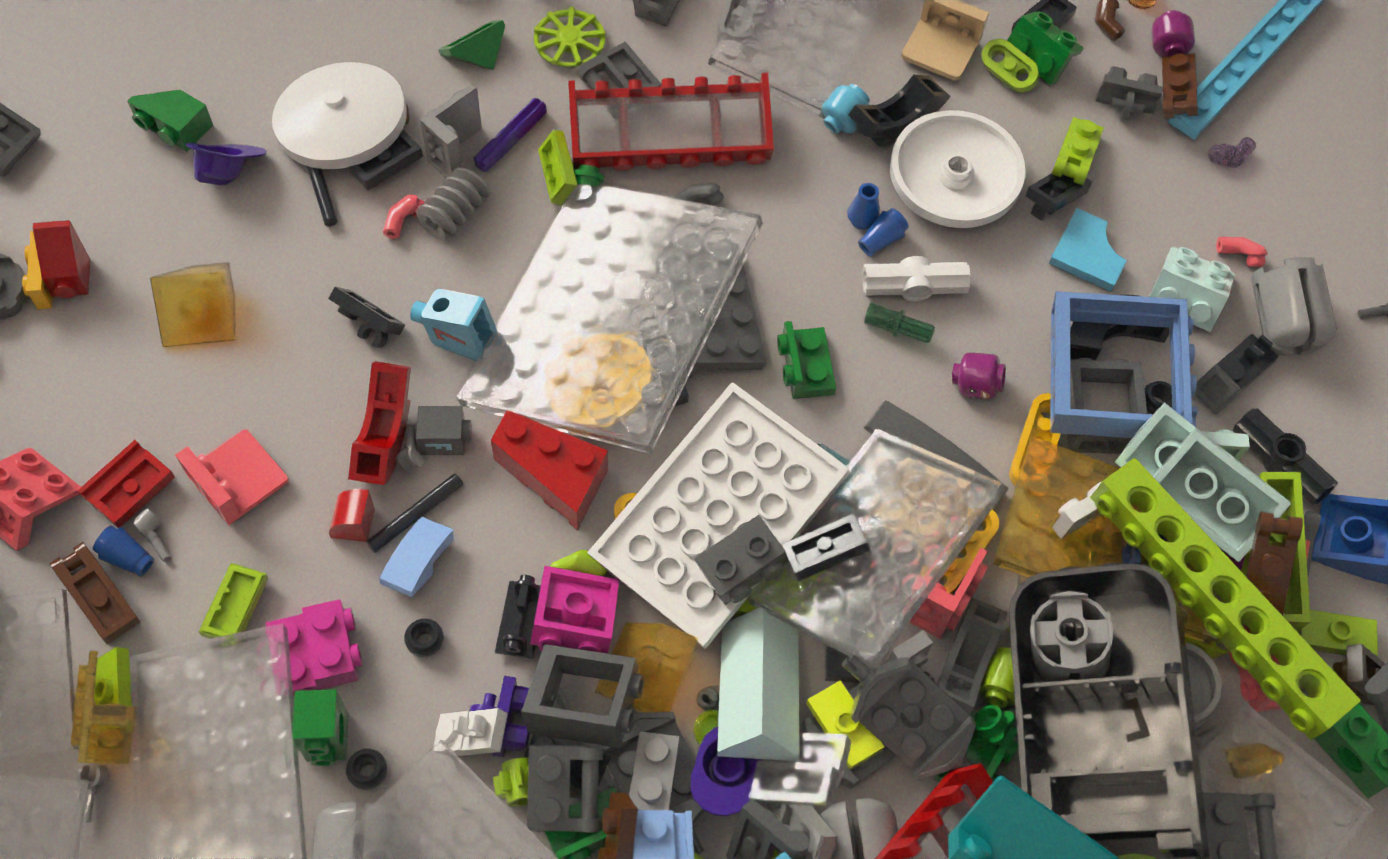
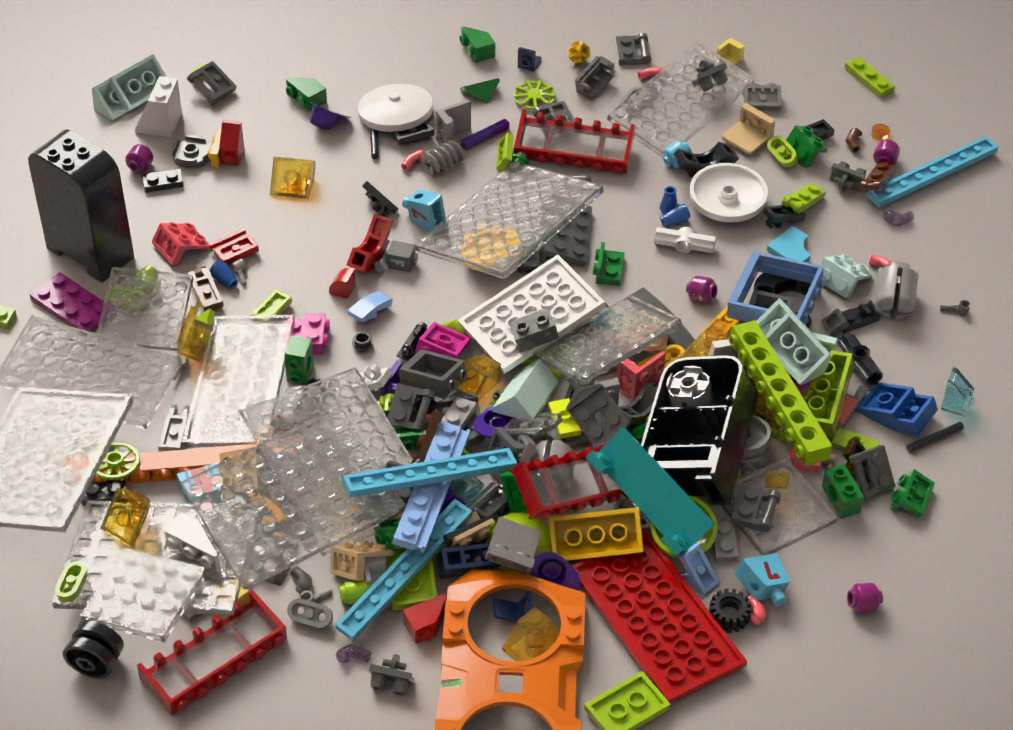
camera: 20 degrees right, 15 degrees down
(234, 475) = (288, 255): coral bracket -> none
(414, 513) = (381, 288): black bar -> none
(551, 464) = (454, 281): red wedge -> none
(826, 547) = (580, 332): plate -> none
(898, 323) = (666, 258): clear green axle -> none
(1273, 561) = (814, 384): reddish brown plate -> none

